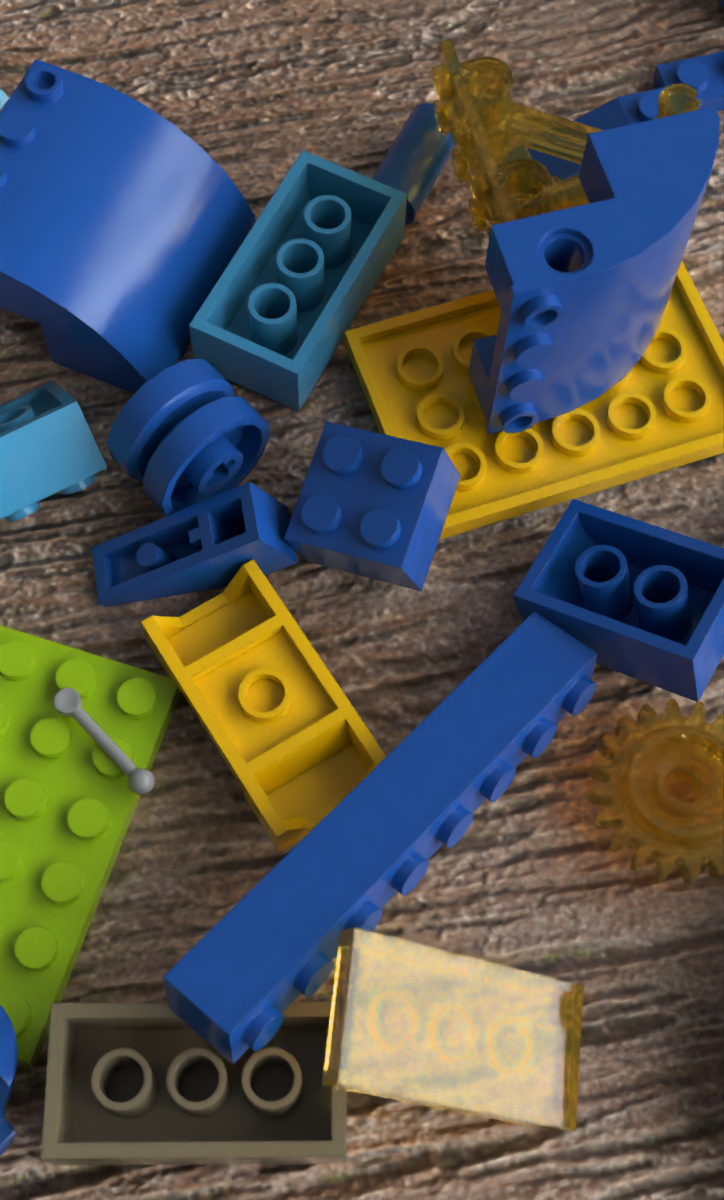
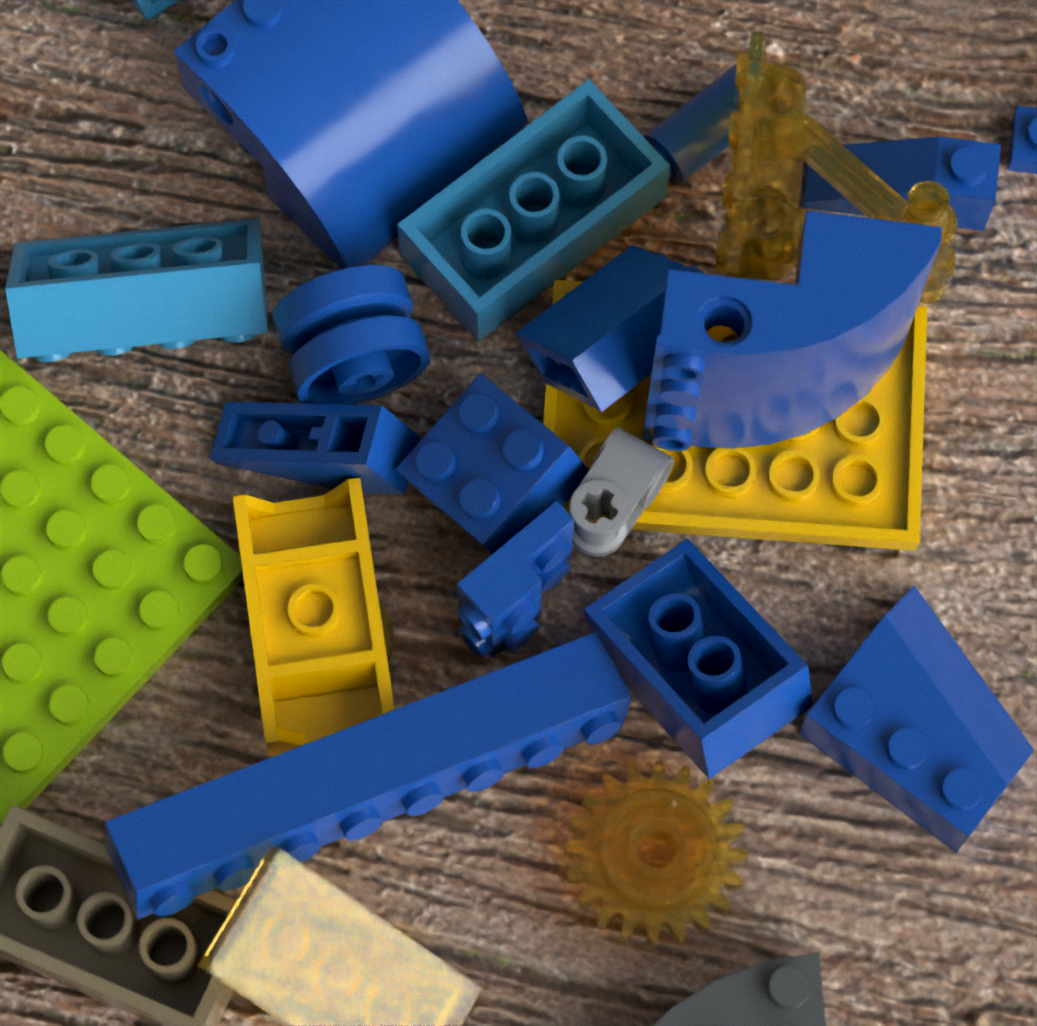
camera: 25 degrees right, 5 degrees up
(70, 705) = (140, 546): light grey hinge -> none
(427, 339) = (604, 330): none -> blue brick
(439, 605) = (505, 591): none -> blue plate
(492, 480) = (619, 484): none -> light grey piece

